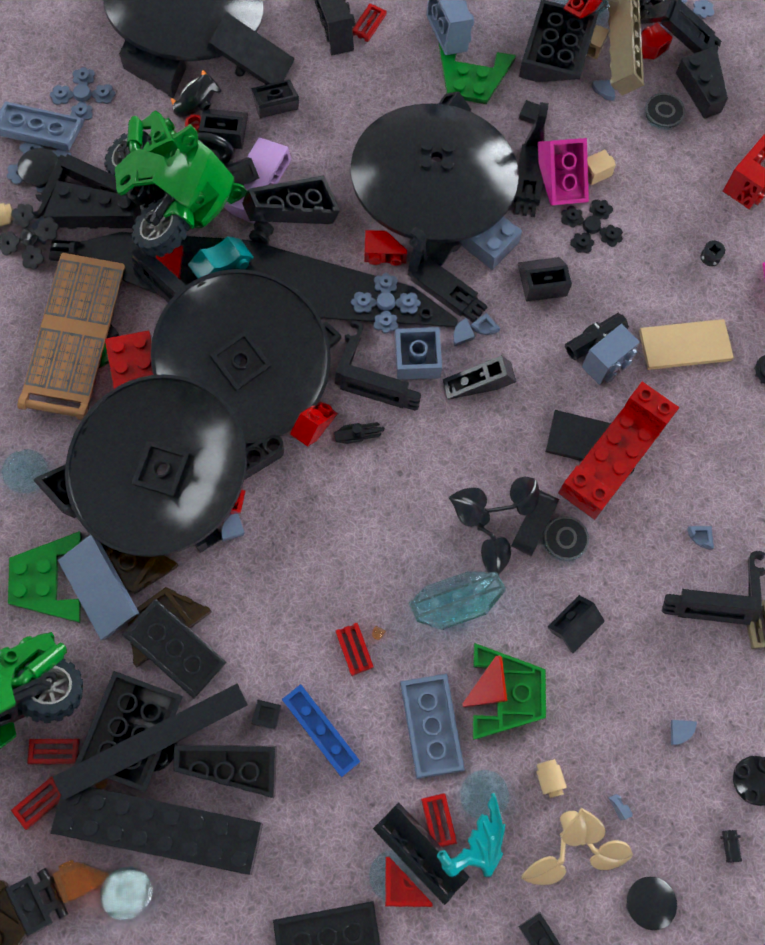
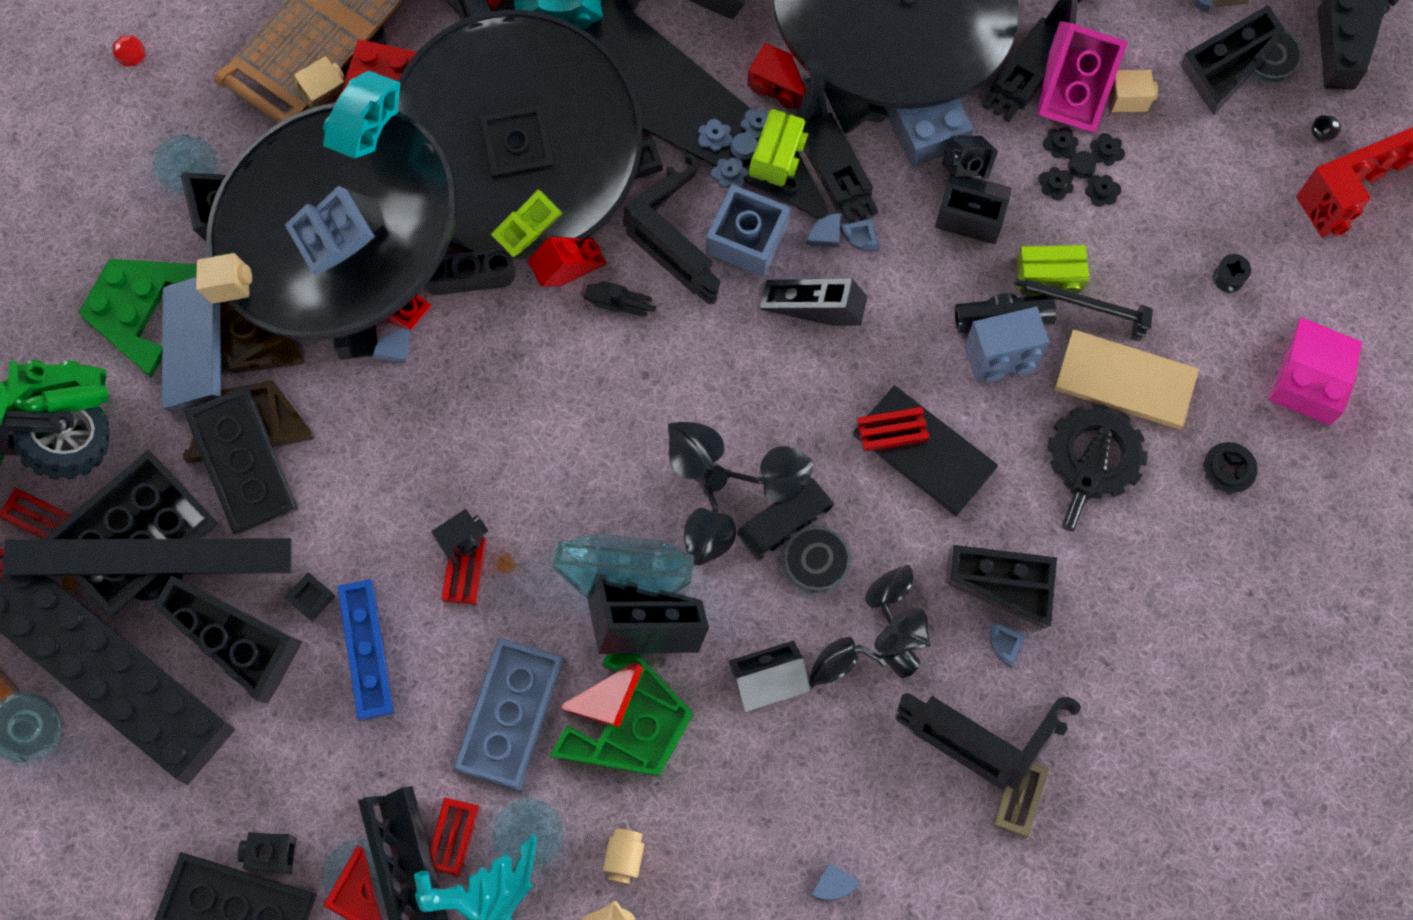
camera: 30 degrees right, 0 degrees up
(93, 378) = (319, 82): none -> tan brick
(106, 535) = (223, 278): none -> tan brick
(143, 387) = (361, 114): none -> teal brick
(161, 472) = (329, 231): none -> sand blue slope
(278, 410) = (527, 223): none -> lime slope
(339, 887) = (280, 854): none -> black brick
(344, 629) = (460, 535): none -> black brick
(410, 293) = (776, 148): none -> lime brick
(487, 627) = (644, 621): none -> black wedge
(526, 248) = (969, 156): none -> black brick
(583, 427) = (890, 417): none -> red tile
(610, 296) = (1055, 266): none -> lime brick
(618, 450) = (947, 476): red plate -> none
(646, 124) = (1231, 57): none -> black wedge
(656, 559) = (895, 643): none -> black plant
(676, 303) = (1142, 317): none -> black piece
(685, 498) = (1006, 579): none -> black wedge
(694, 411) = (1088, 475): none -> black bar
(716, 139) = (1323, 123): none -> black hinge

